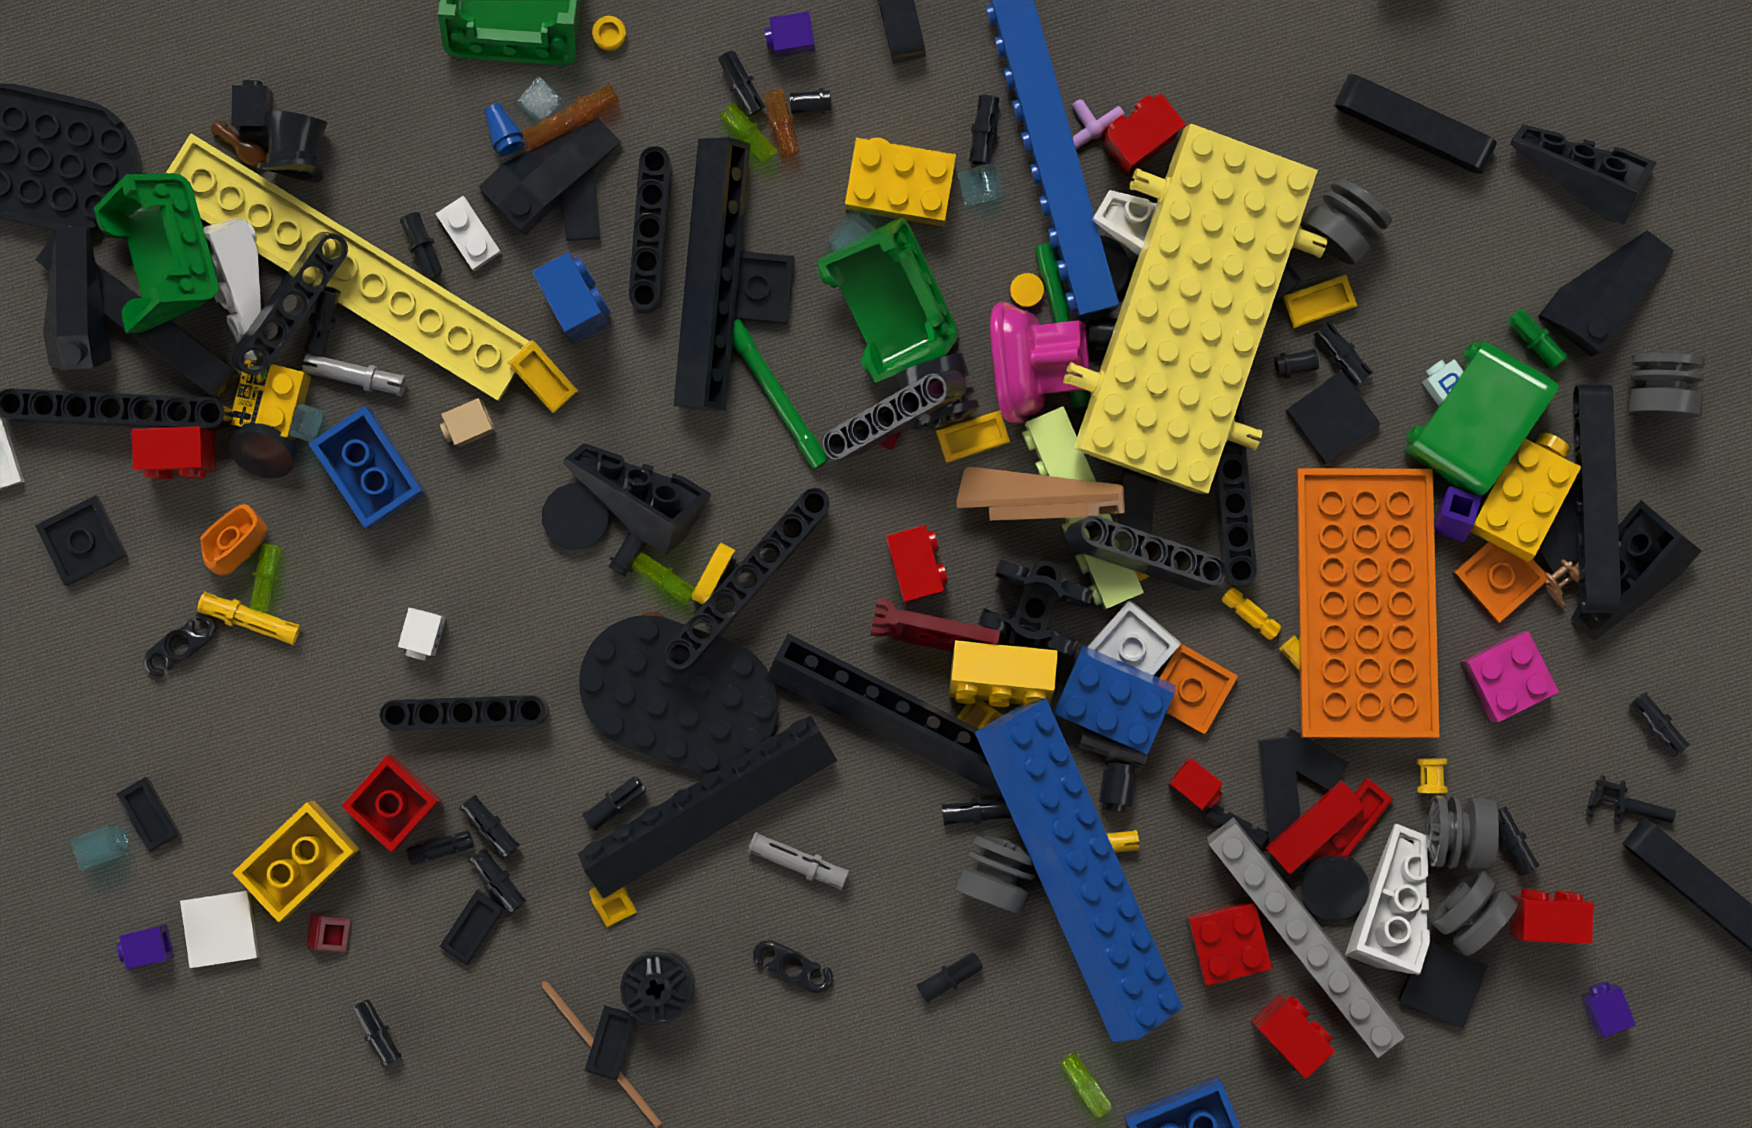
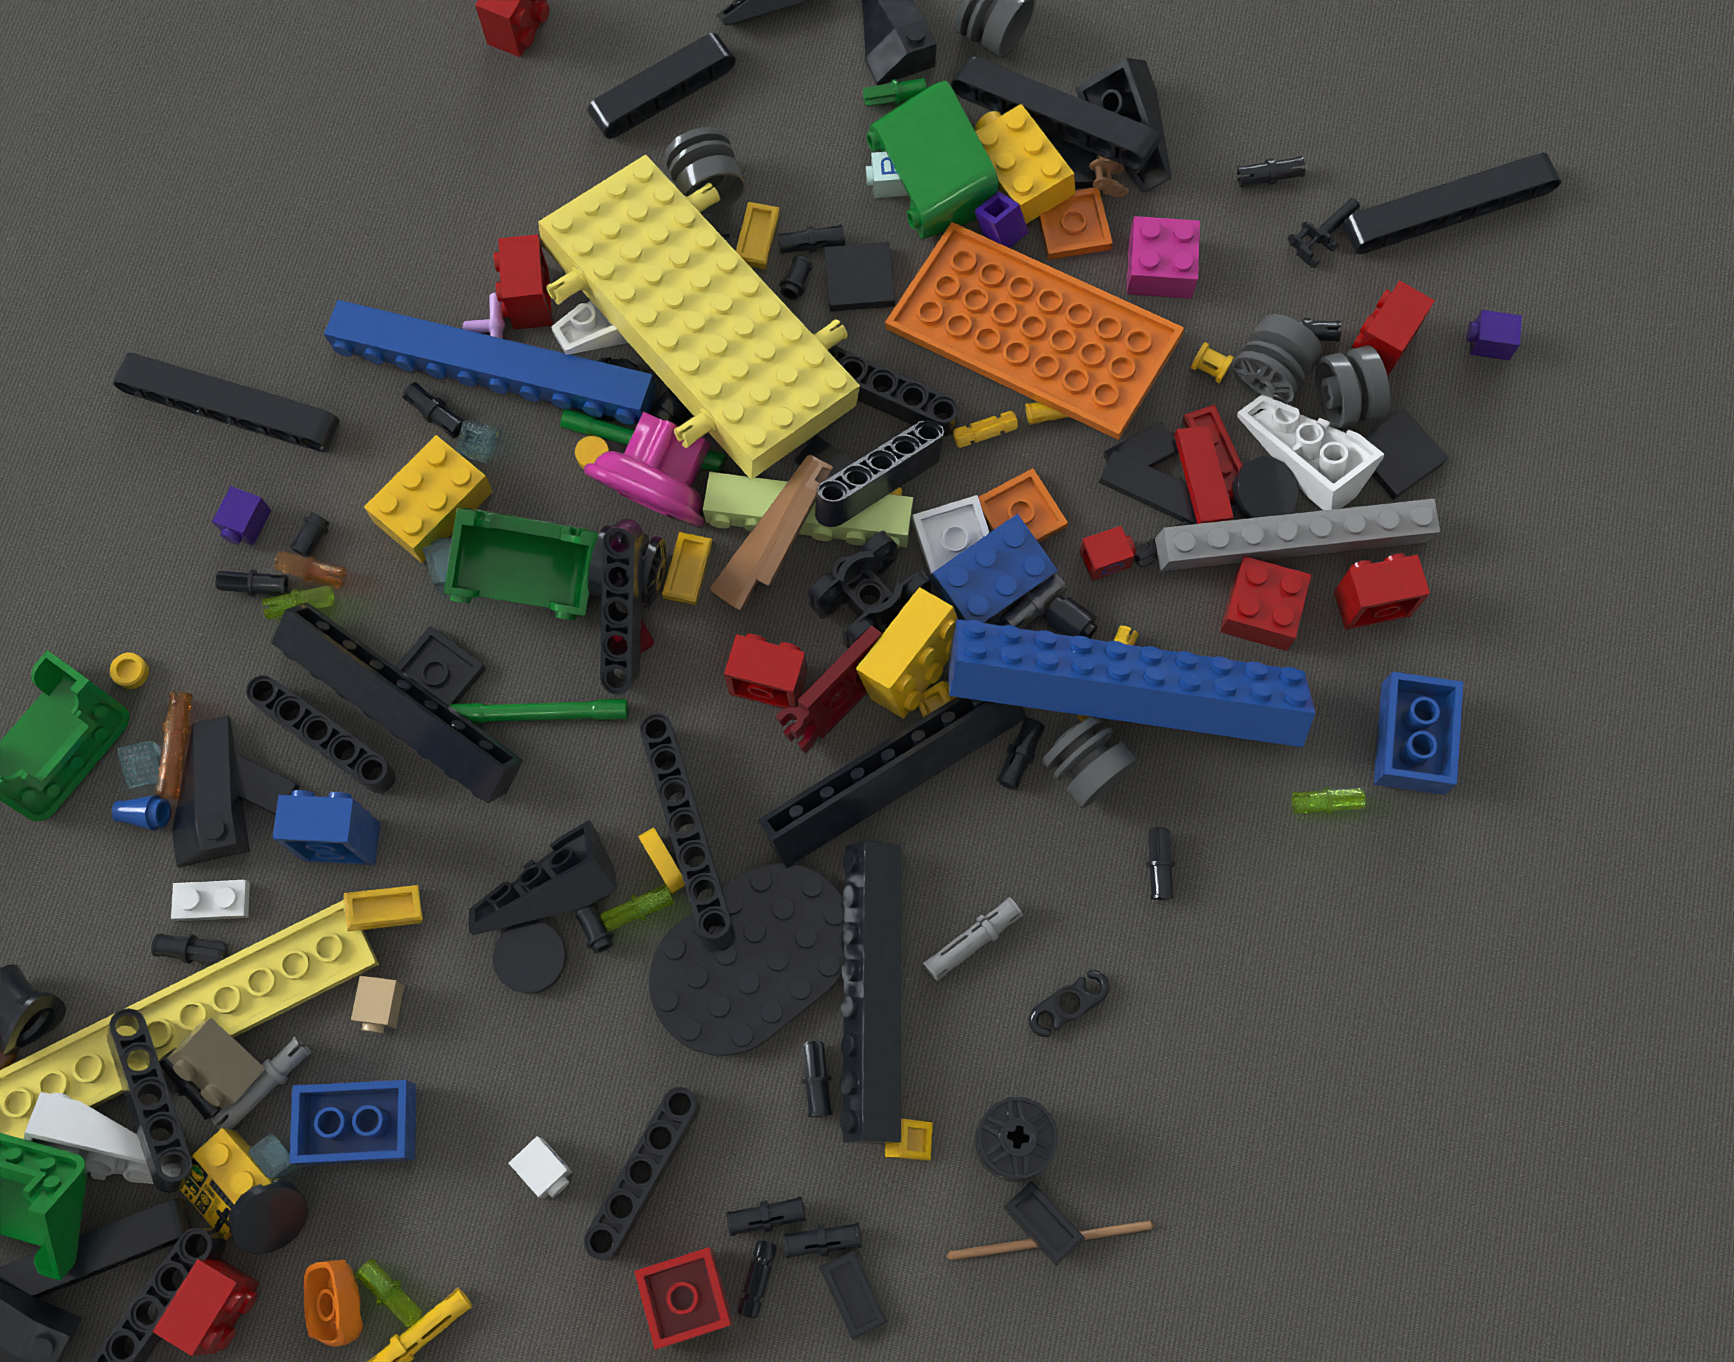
camera: 60 degrees left, 15 degrees down
(346, 333) = (215, 1064): none -> dark tan brick

